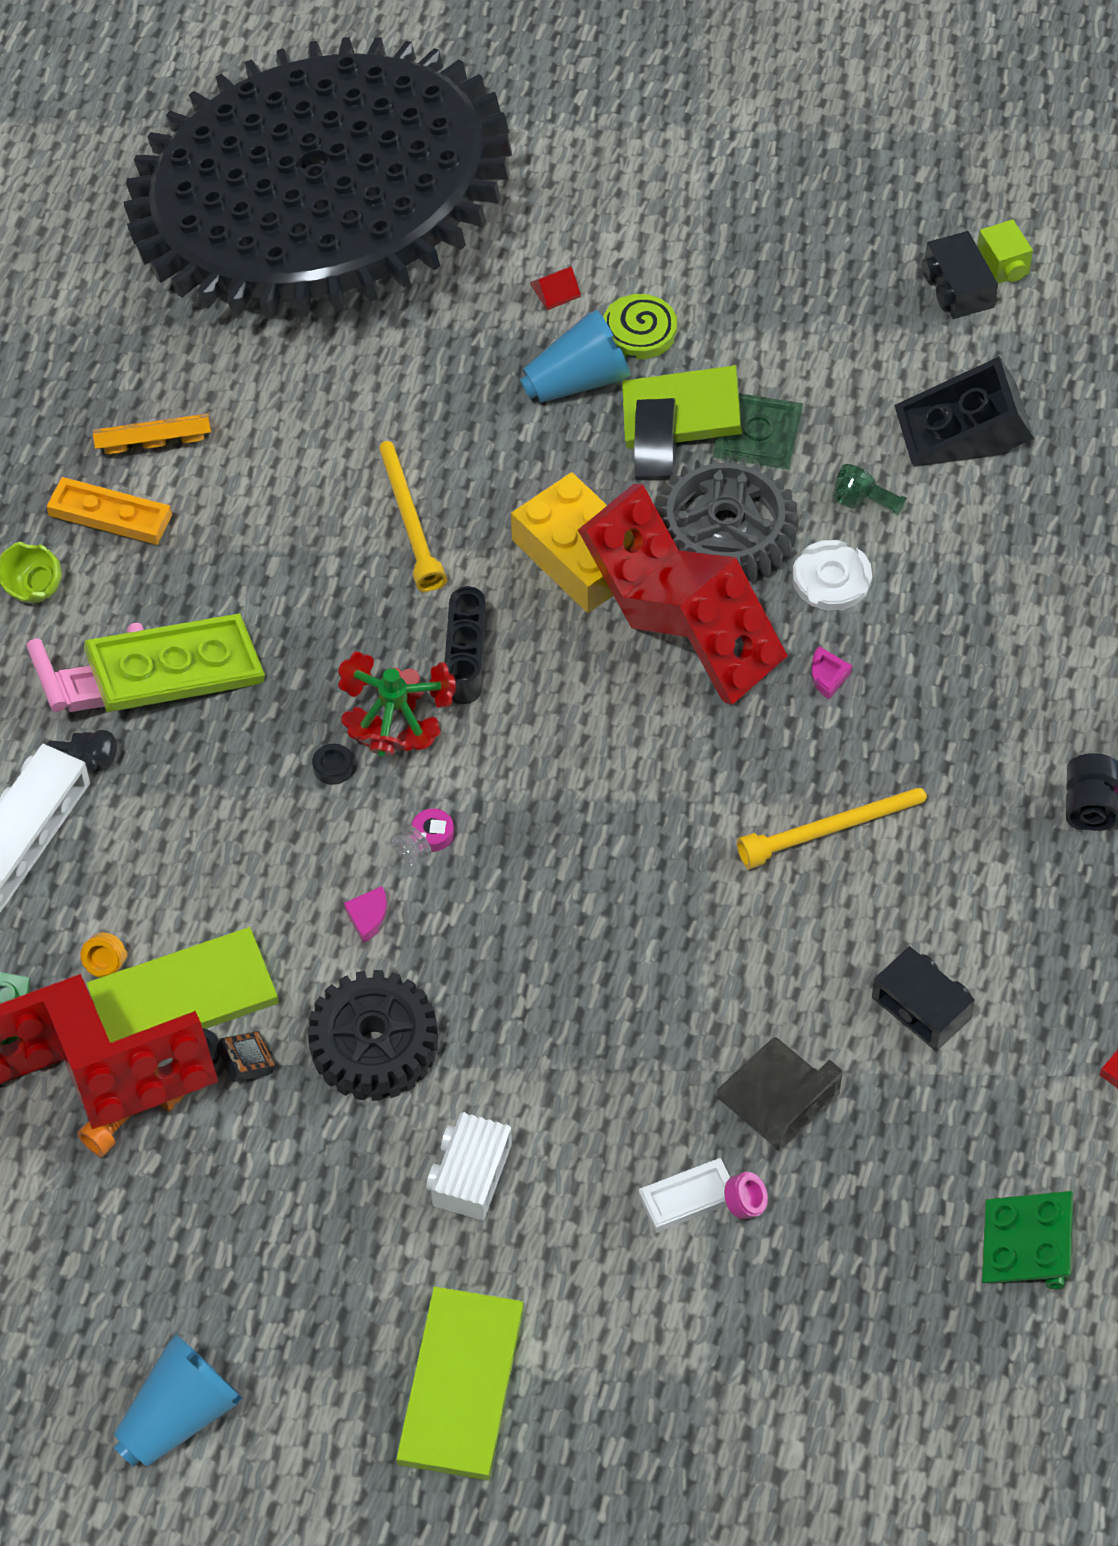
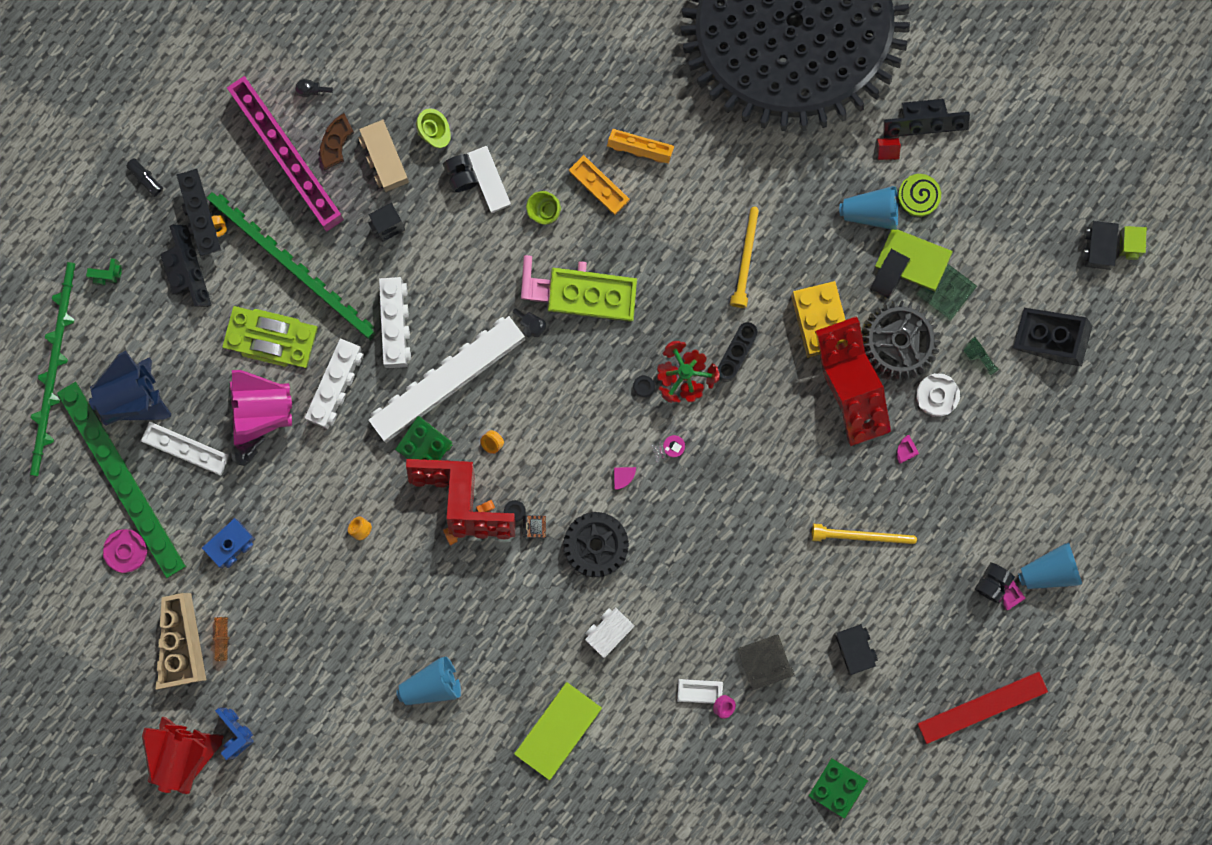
camera: 25 degrees right, 25 degrees up
(214, 978) = (520, 477): lime tile -> none
(591, 227) = (925, 118): none -> black bracket

